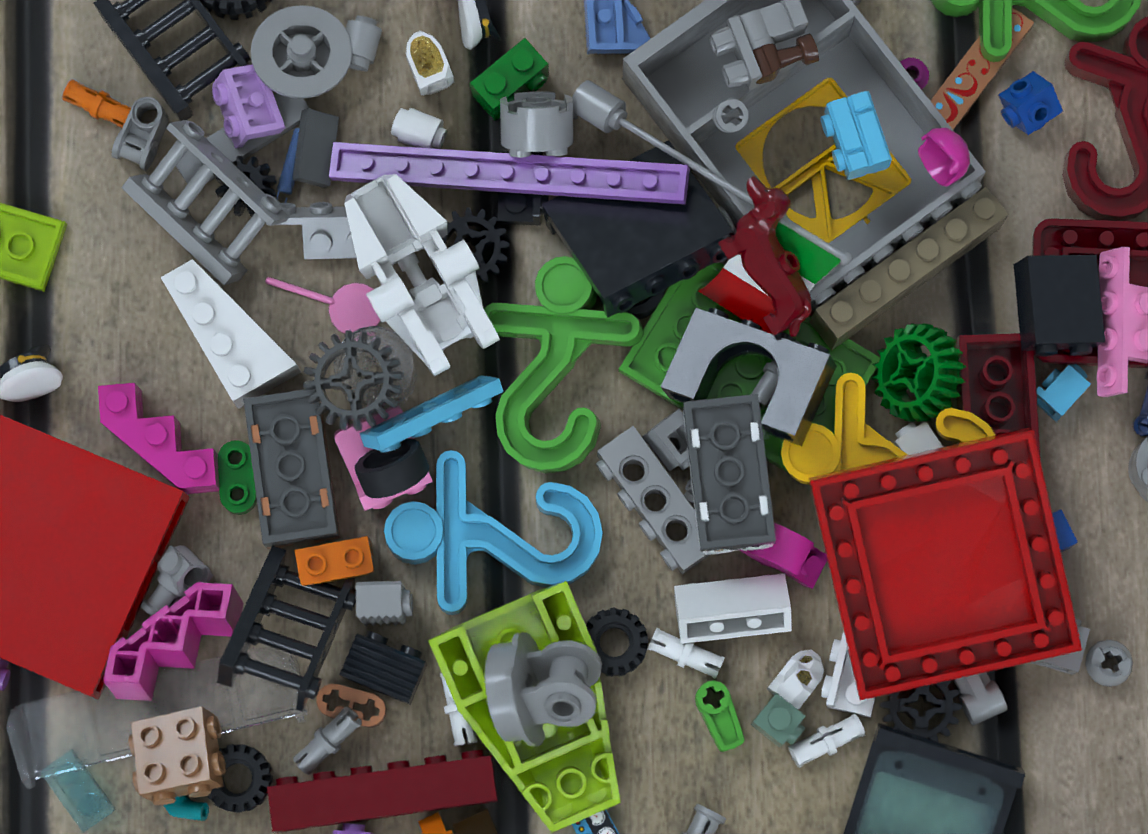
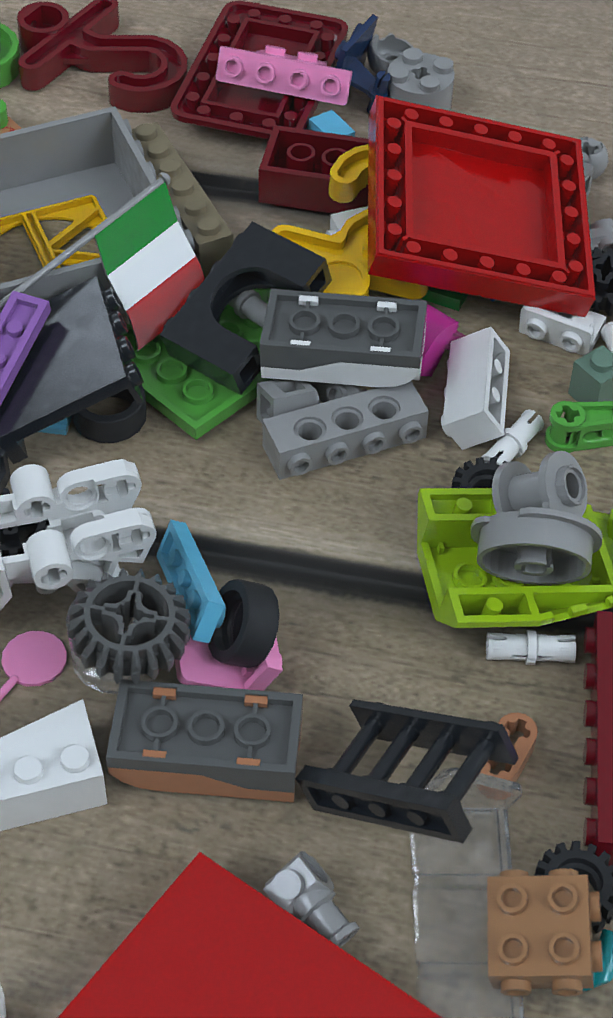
camera: 80 degrees left, 30 degrees down
(157, 440) = (119, 891): dark pink brick -> none
(171, 639) = (389, 912): dark pink brick -> none
(236, 476) = (192, 818): green plate -> none
(327, 740) = (547, 776): light grey pin -> none
(334, 561) = (333, 716): orange bracket -> none
(383, 602) = (398, 668): light grey brick -> none
(383, 667) = (476, 691): black brick -> none
(459, 528) = (329, 607): medium azure piece -> none
(565, 331) = (98, 438): bright green piece -> none
(767, 260) = (137, 245): dark red animal -> none
(798, 677) = (554, 363): white rock -> none
(857, 135) = (42, 168): medium azure brick -> none
(929, 378) = (299, 205): green gear -> none
(944, 155) = (91, 114): dark pink hair -> none
(1029, 103) = (56, 99): blue brick -> none
(1059, 304) = (255, 97): black brick -> none

